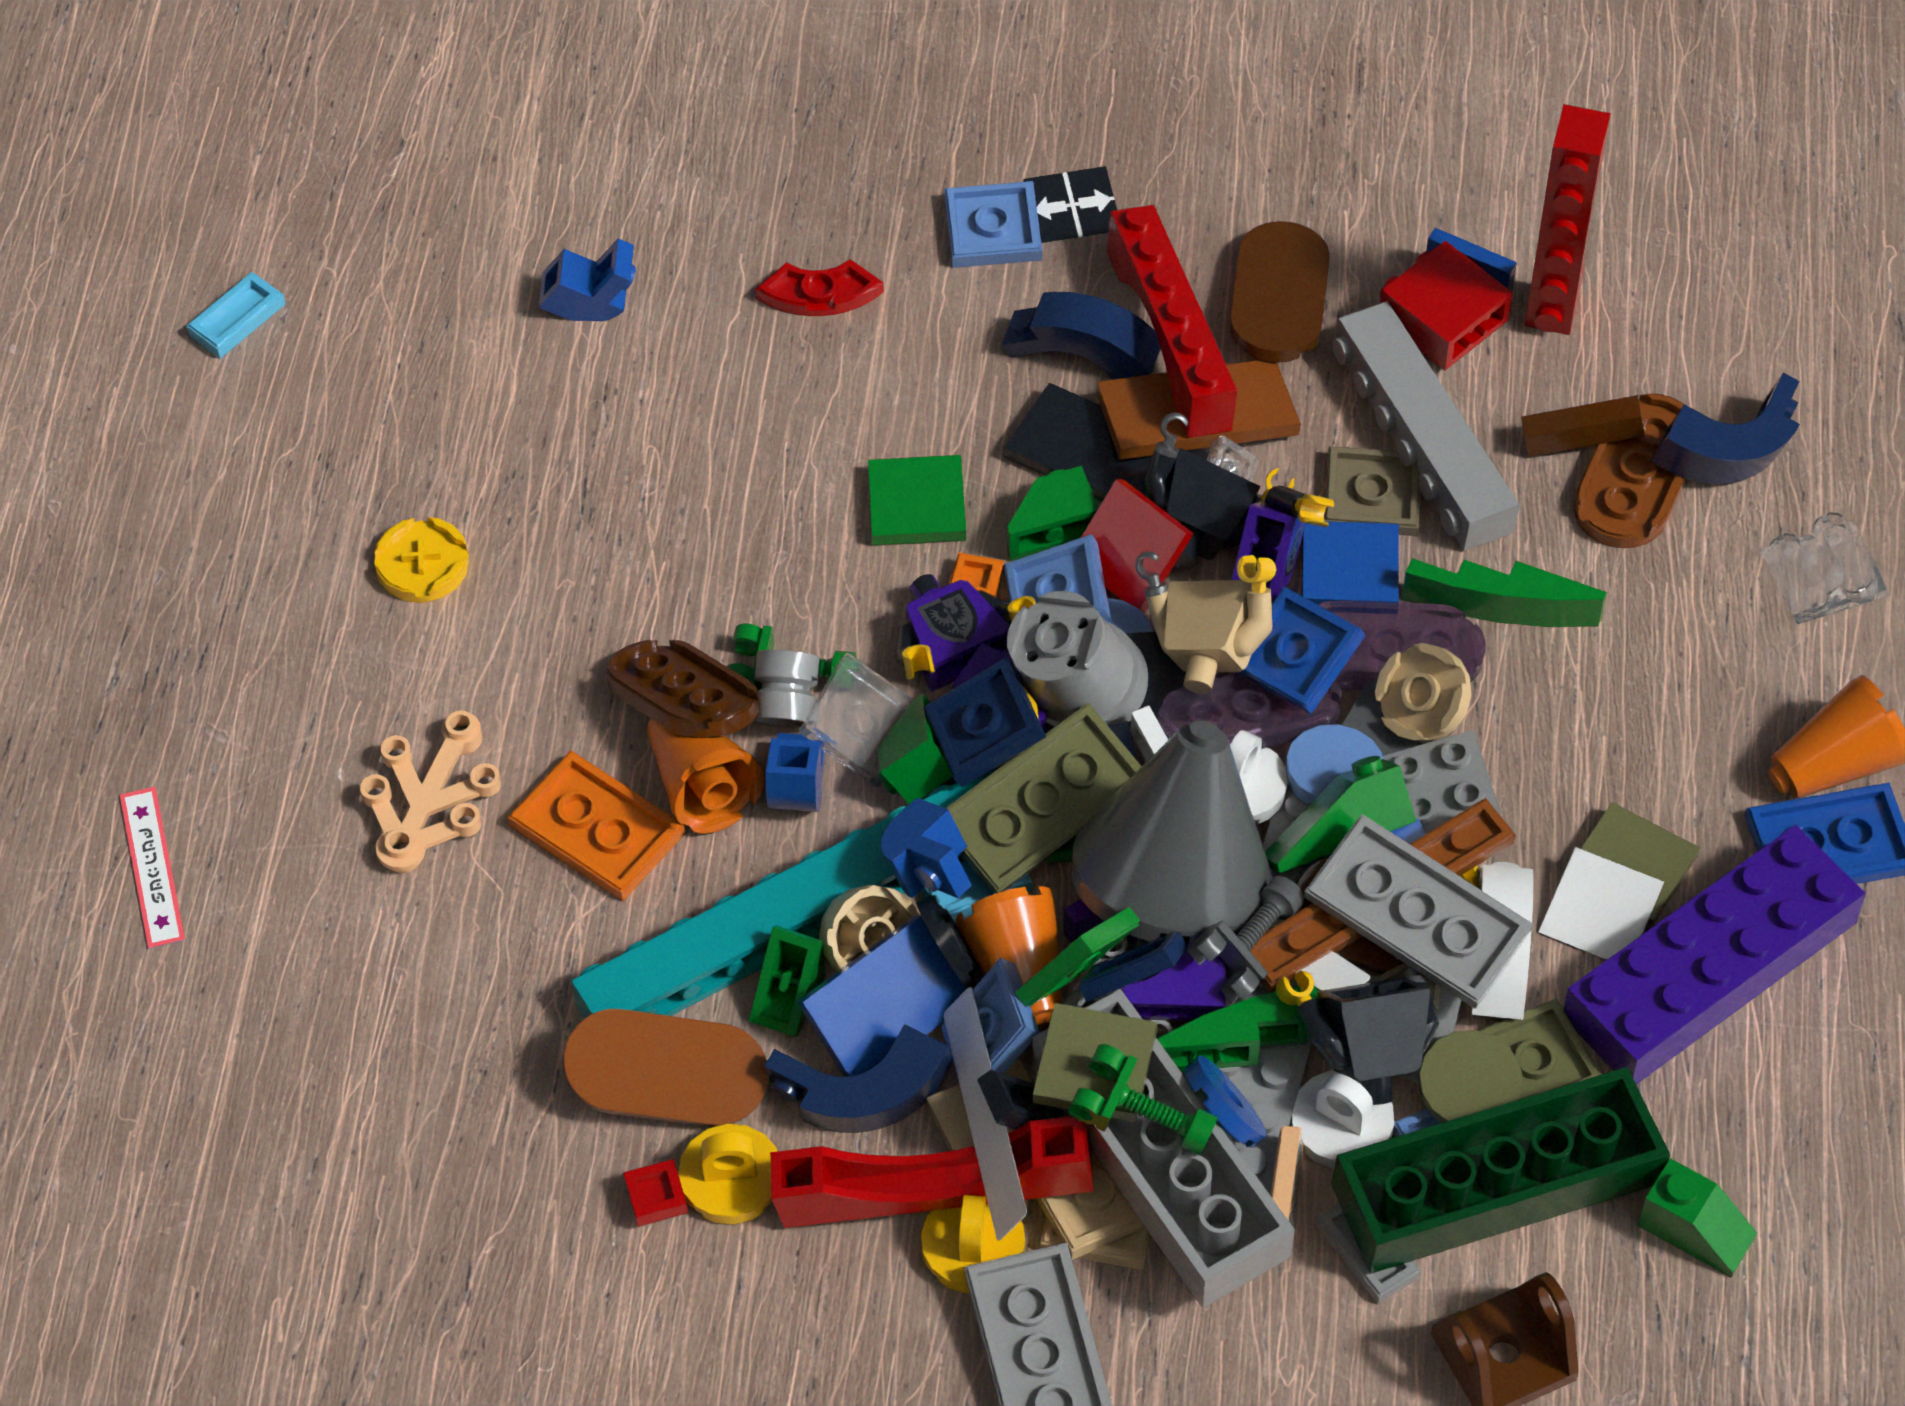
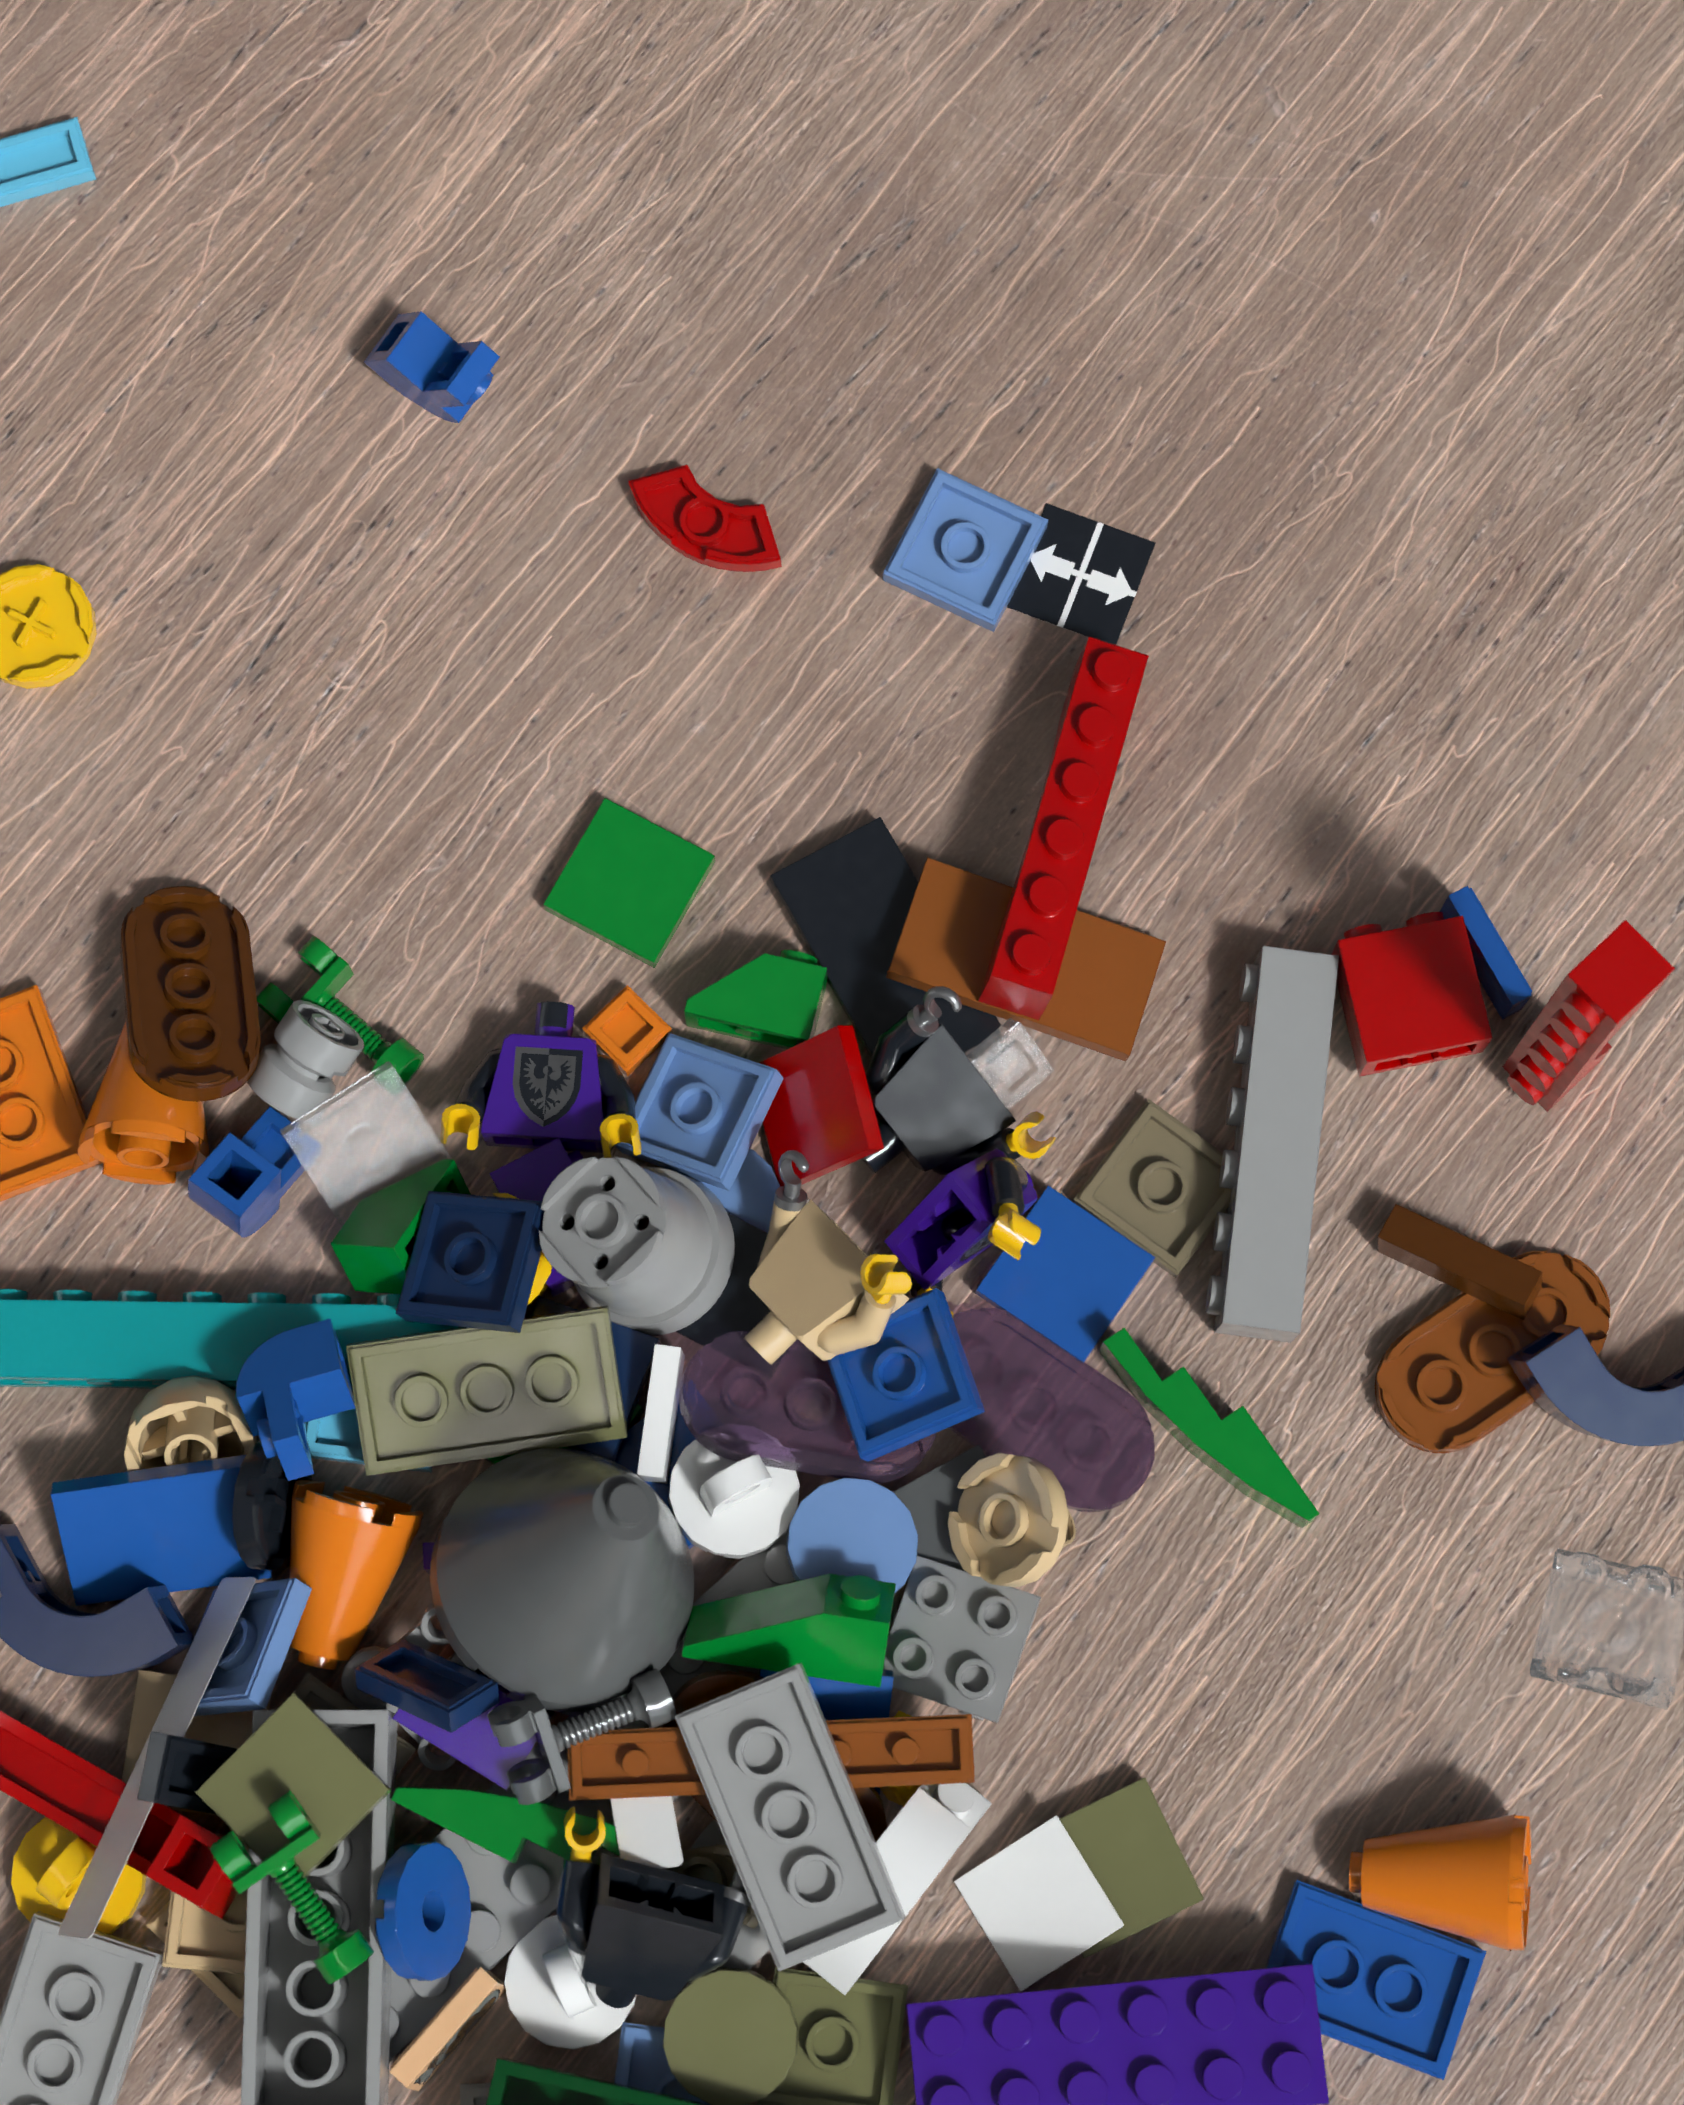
camera: 30 degrees right, 20 degrees up
(789, 972) = (76, 1435): green slope -> none
(1078, 957) = (365, 1644): green tile -> none
(1086, 327) = (956, 778): dark blue arch -> none
(1279, 291) = (1233, 852): reddish brown tile -> none

